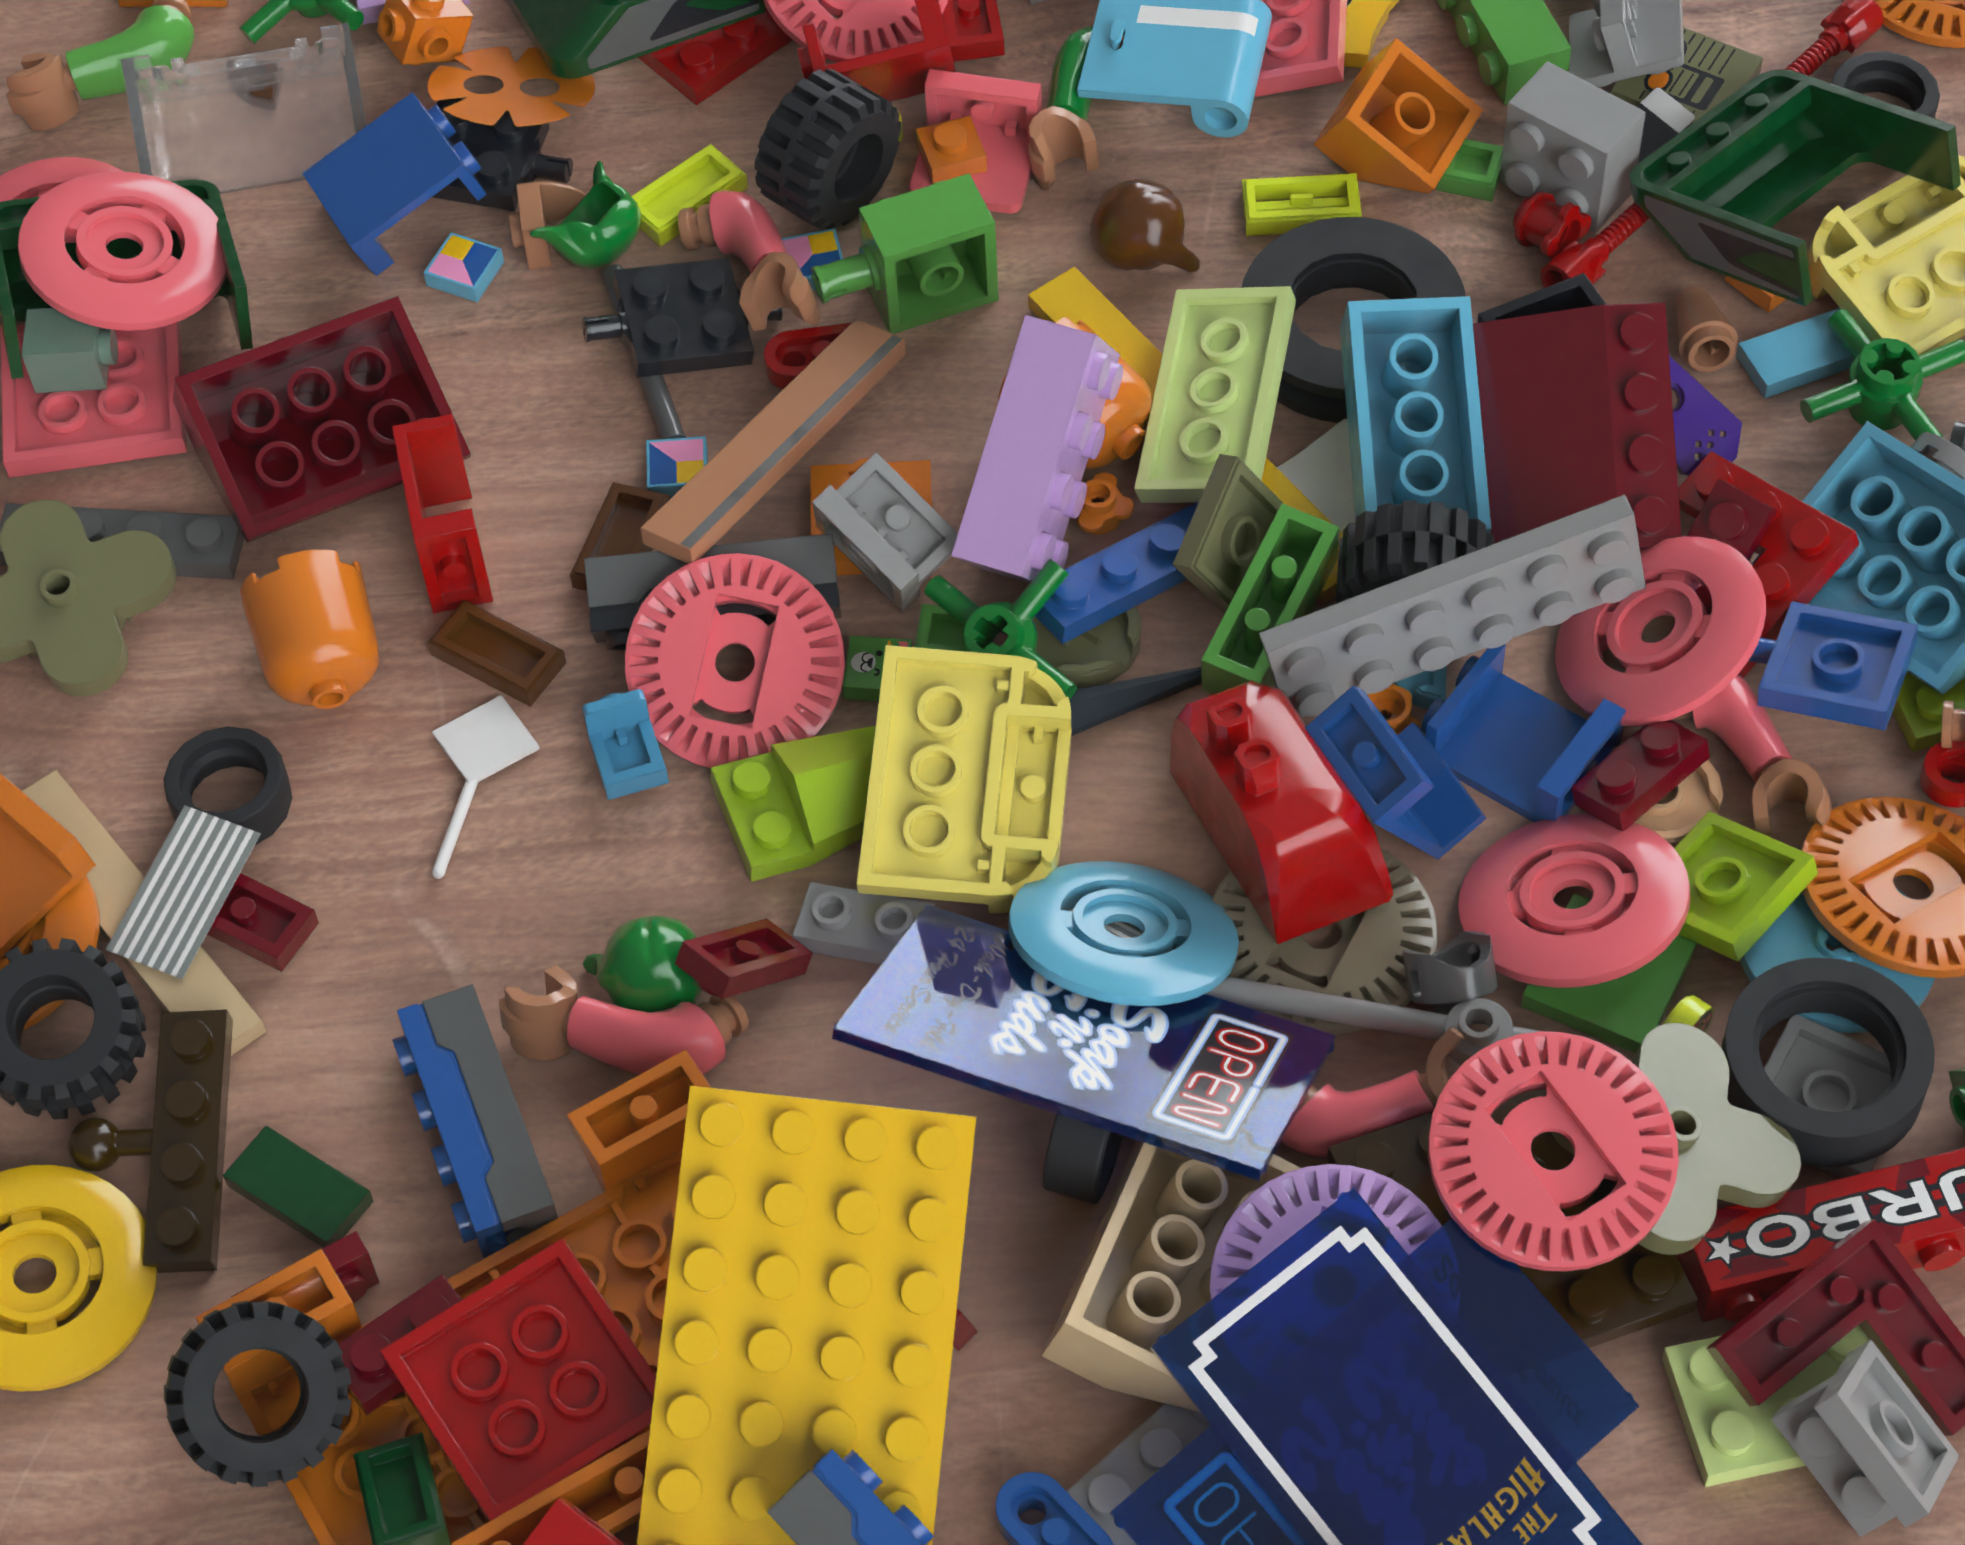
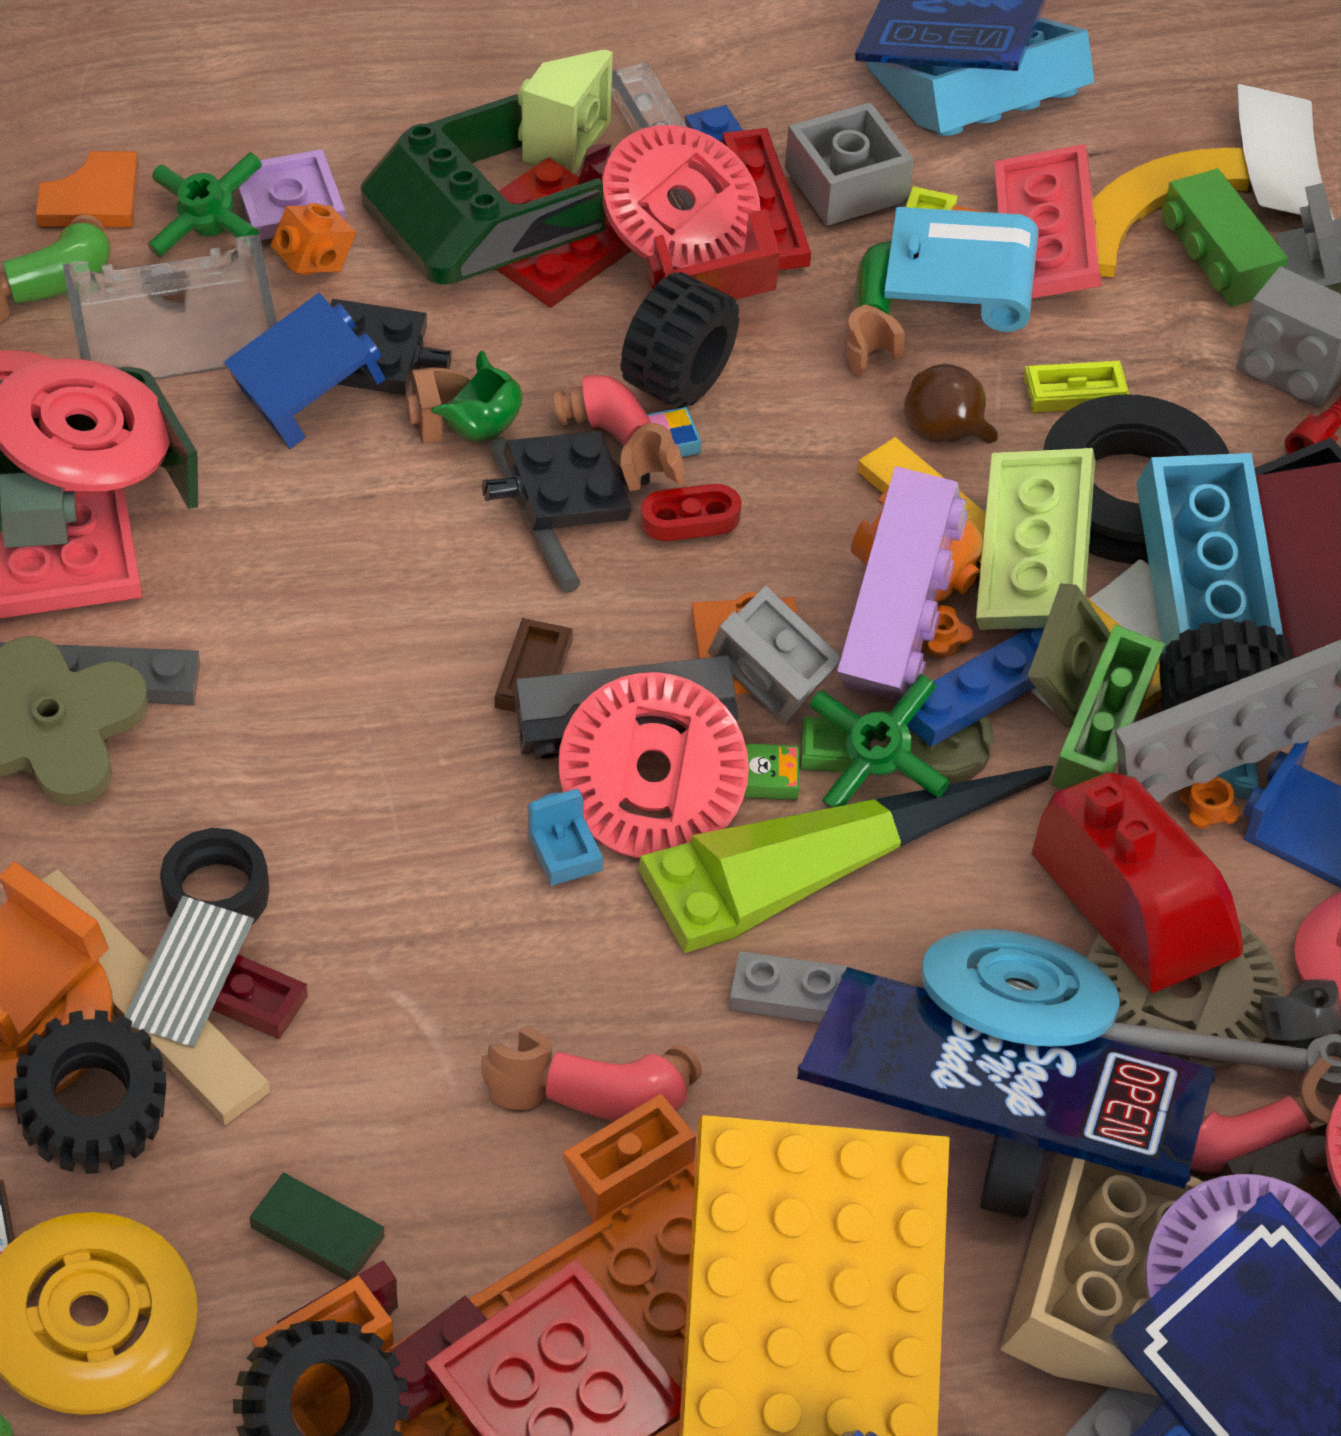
camera: 10 degrees left, 5 degrees down
(183, 1143) = (211, 1189): dark brown plate -> none
(310, 417) = (261, 567): dark red slope -> none
(312, 628) = (279, 742): orange cylinder -> none
(447, 542) = (390, 672): red panel -> none
(464, 267) = (368, 441): tile -> none
(476, 1118) = (473, 1163): piece -> none
(479, 747) = (432, 842): white piece -> none
(497, 653) = (437, 763): reddish brown tile -> none
(524, 109) = (380, 308): orange piece -> none
(640, 965) = (611, 1023): green hair -> none
(674, 462) = (576, 605): tile -> none
(684, 187) = (555, 371): neon yellow tile -> none
(743, 958) = (693, 1017): dark red plate -> none
(773, 442) = (665, 581): nougat tile -> none
(920, 256) = (769, 427): bright green brick -> none
(951, 149) = (779, 342): orange plate -> none
(964, 777) = (868, 858): light yellow plate -> none
(1002, 120) = (799, 334): coral bracket -> none
(1395, 776) = (1237, 846): blue panel -> none
(1398, 122) = (1151, 318): orange slope -> none
(1473, 171) = (1213, 357): bright green tile -> none
(1548, 224) = (1287, 400): red brick -> none

